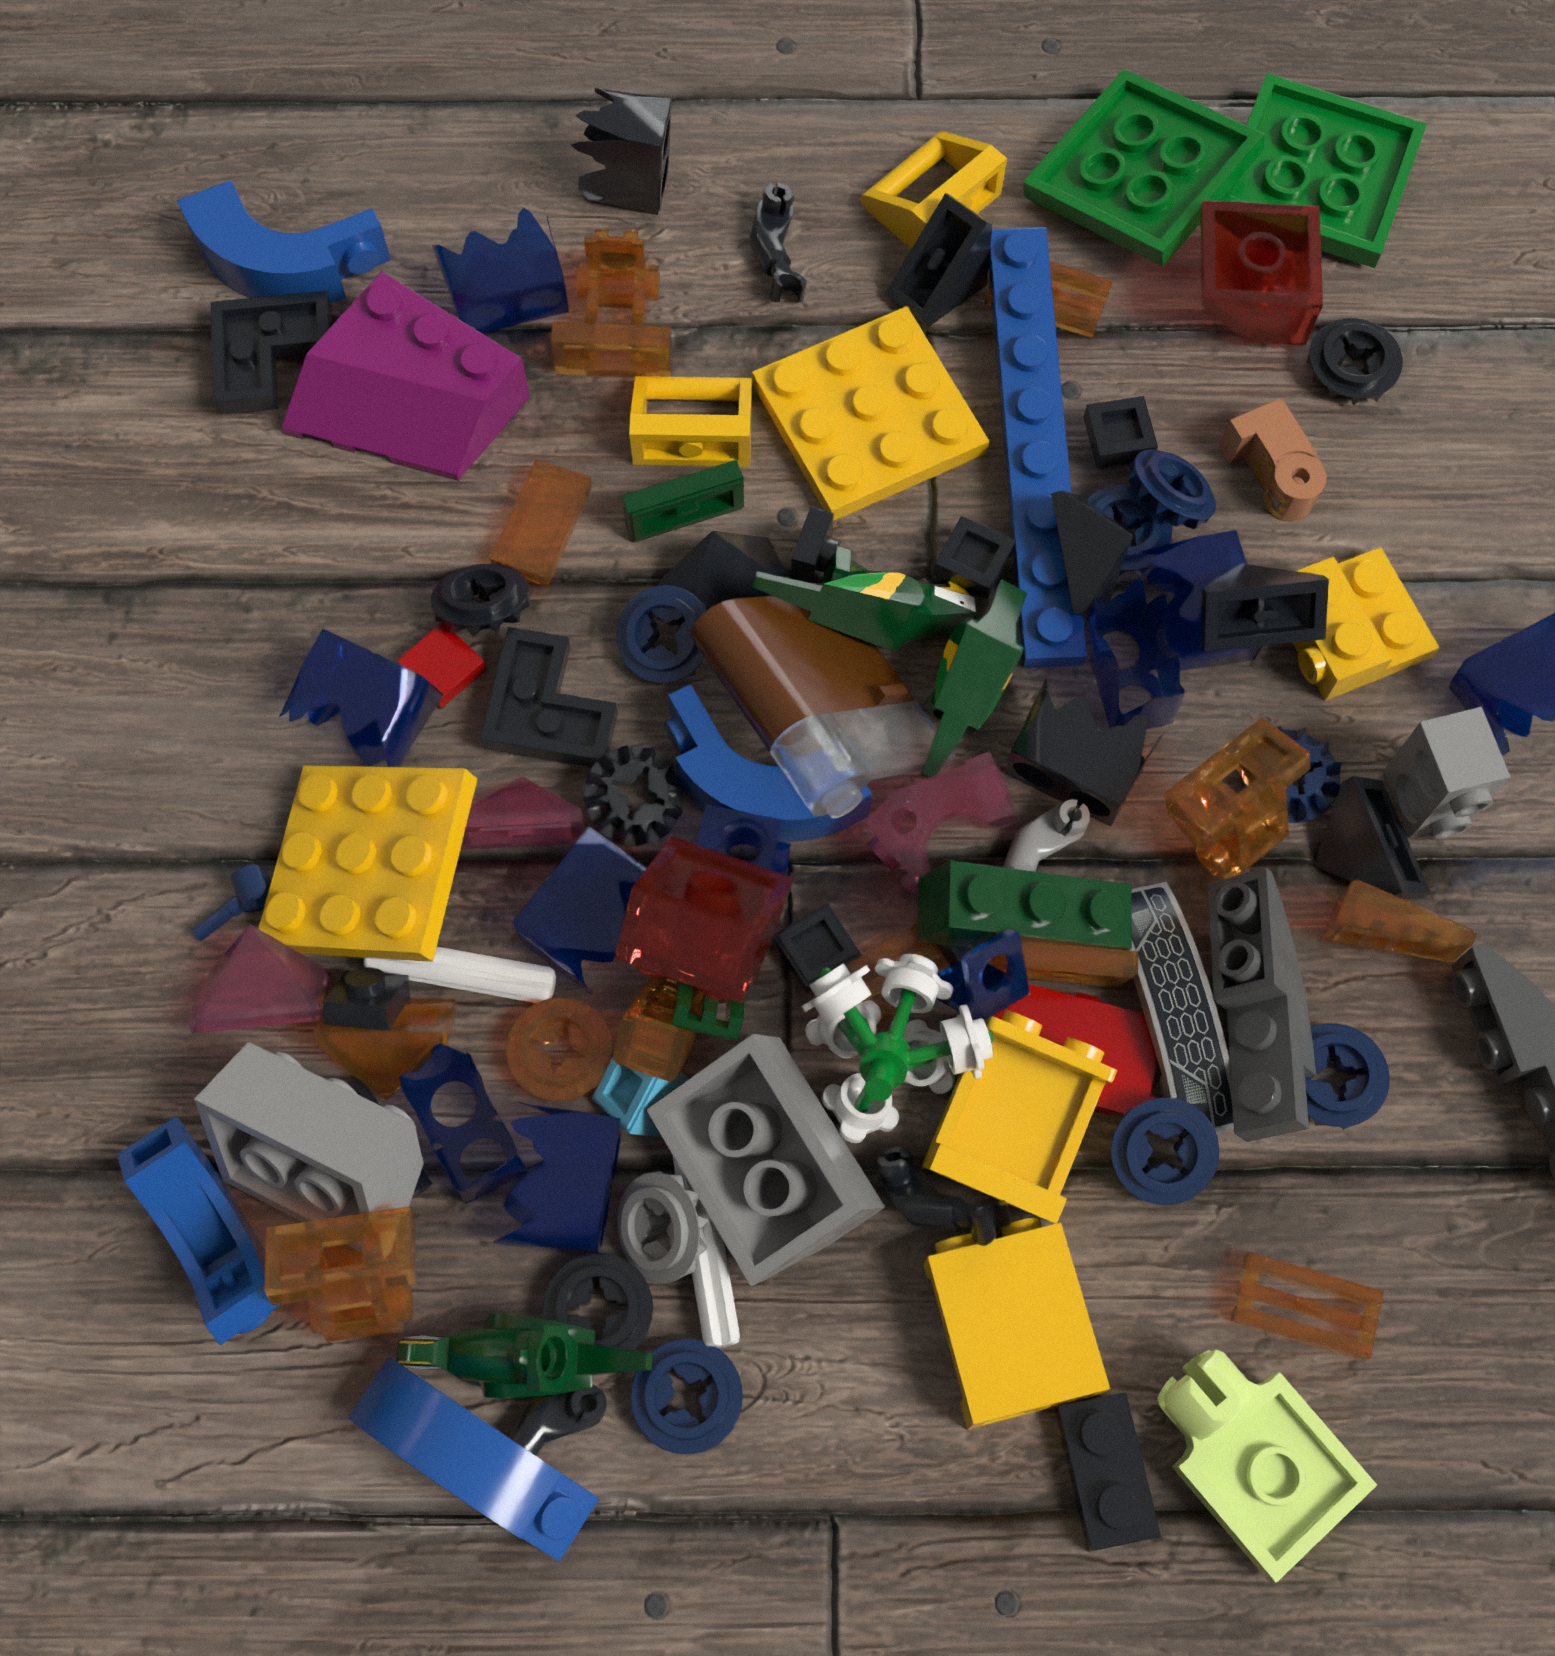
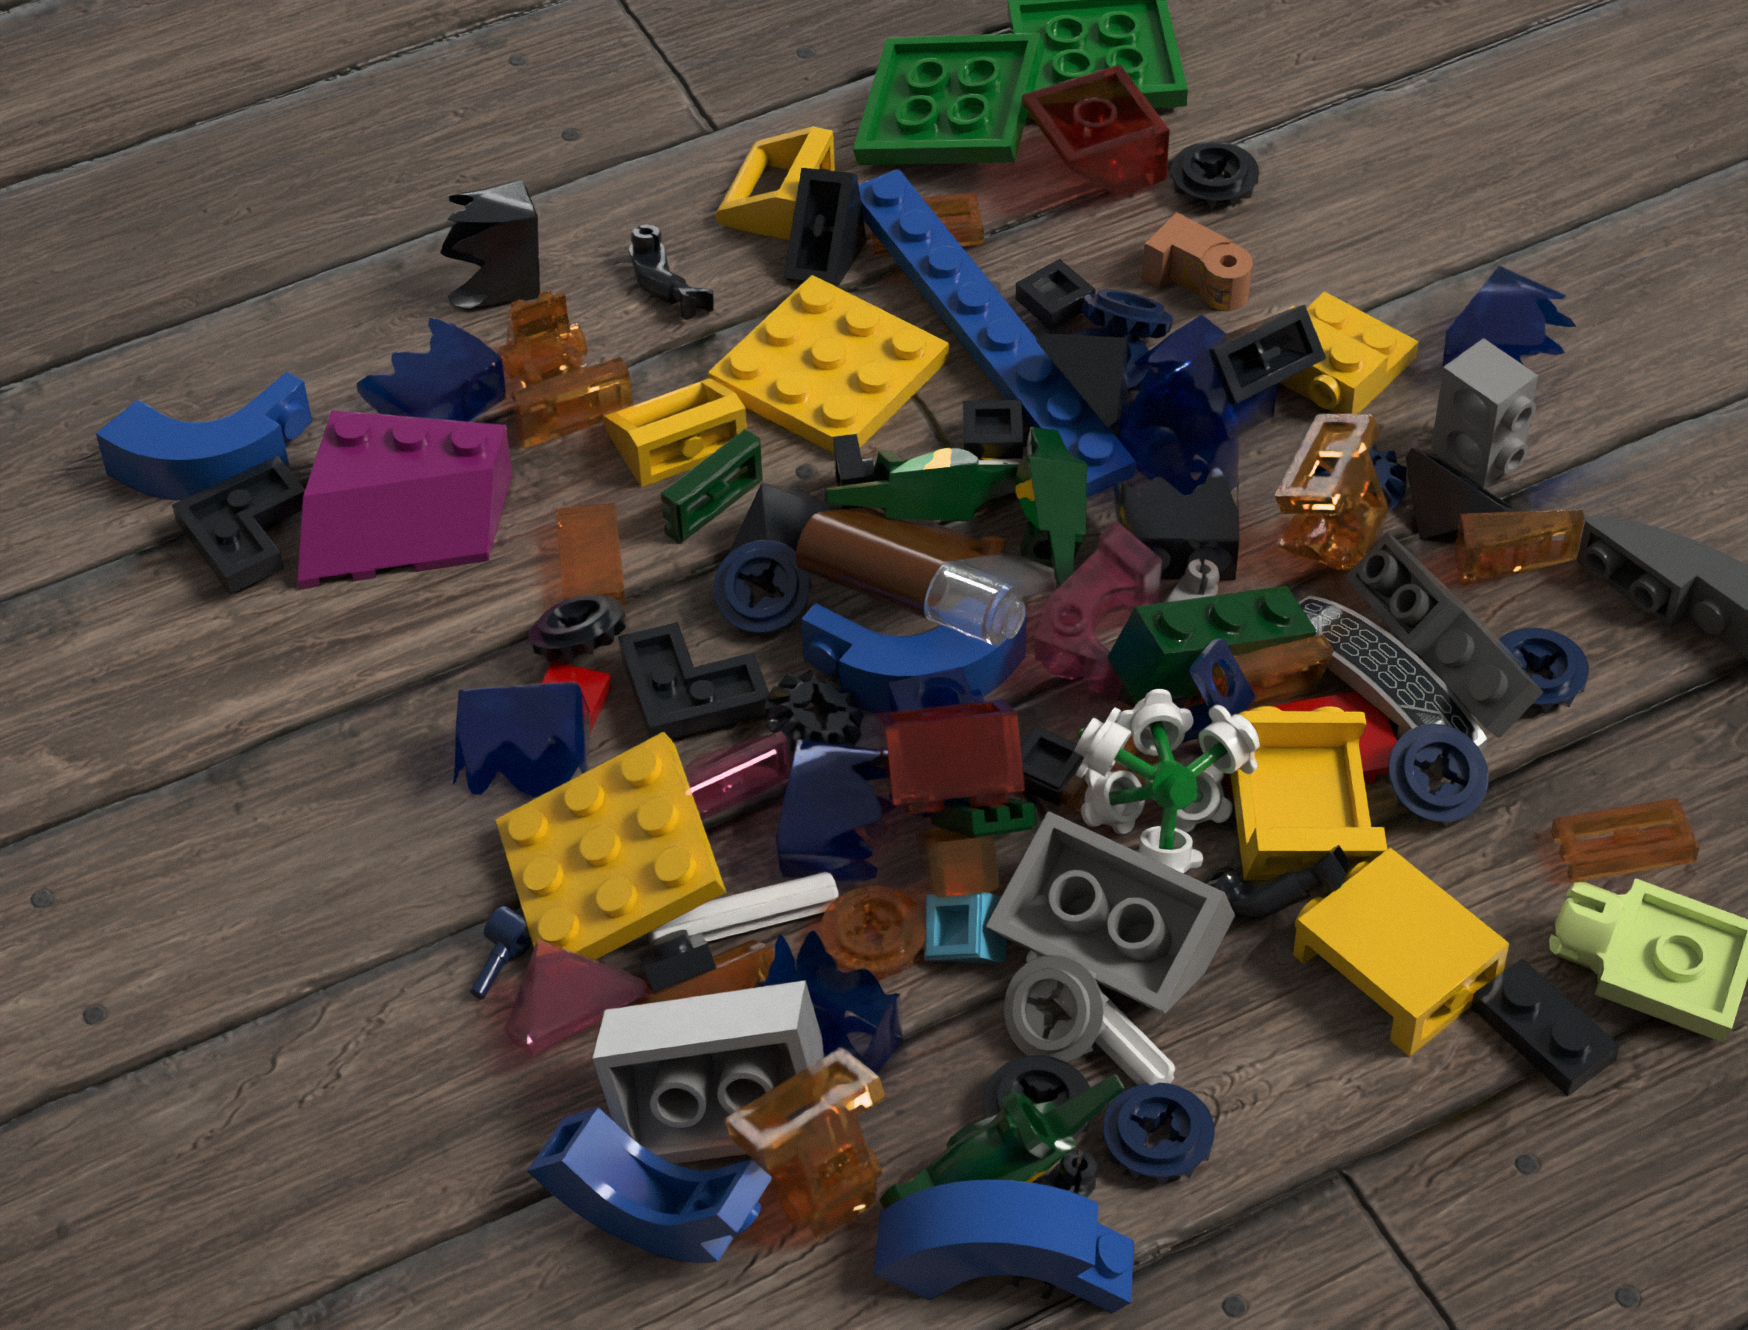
camera: 25 degrees left, 20 degrees down
(569, 1193) = (958, 1020): clear blue piece -> none

